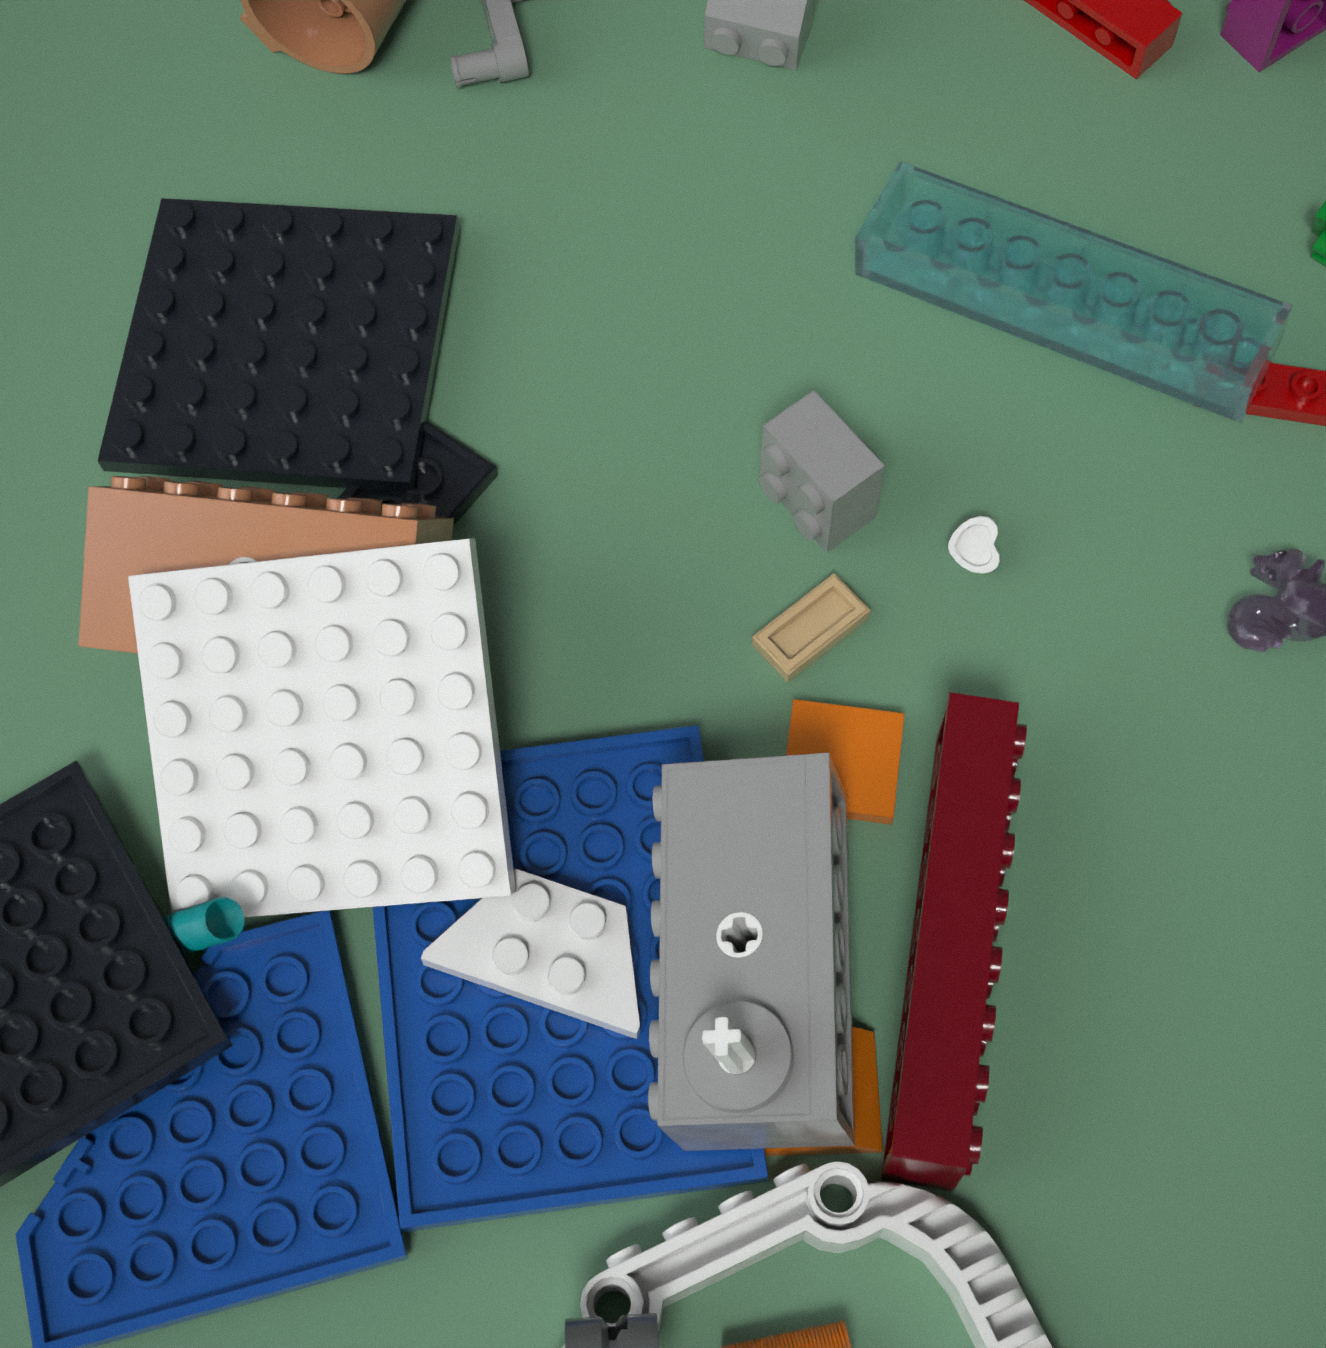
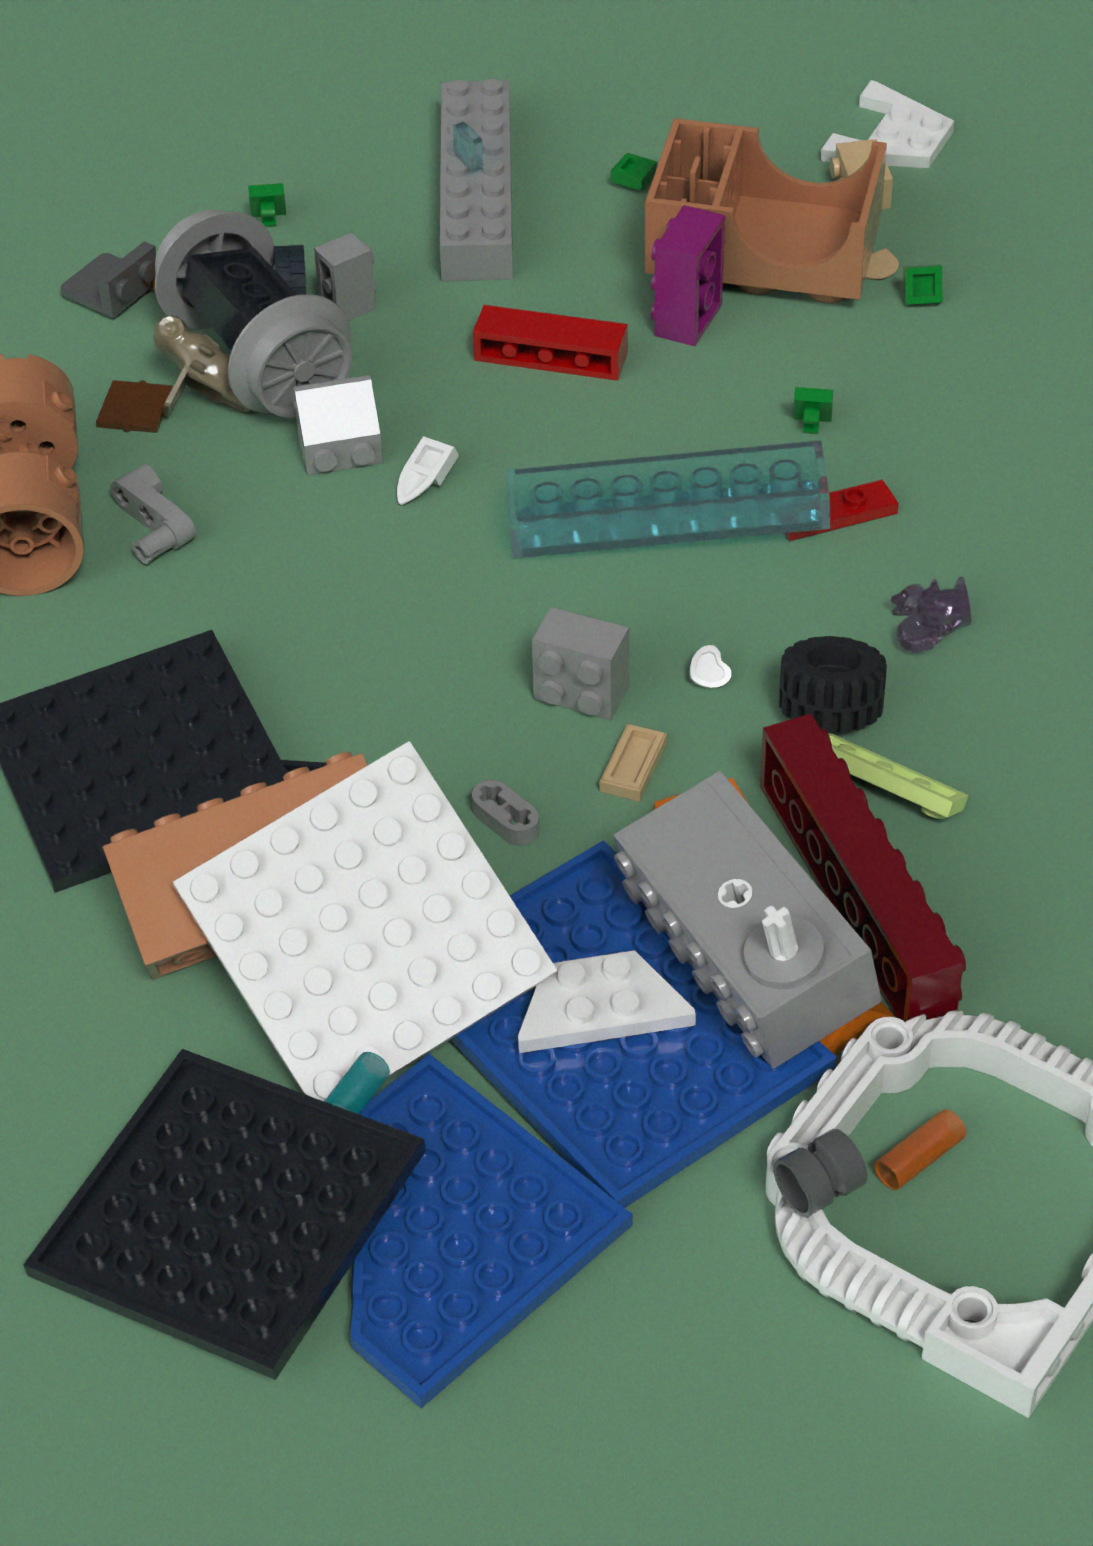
camera: 30 degrees left, 20 degrees down
(635, 618) = (500, 816): none -> light grey beam
(832, 103) = (425, 467): none -> white plate
(1087, 807) = (934, 797): none -> yellowish green plate
(1115, 622) = (834, 682): none -> black tyre

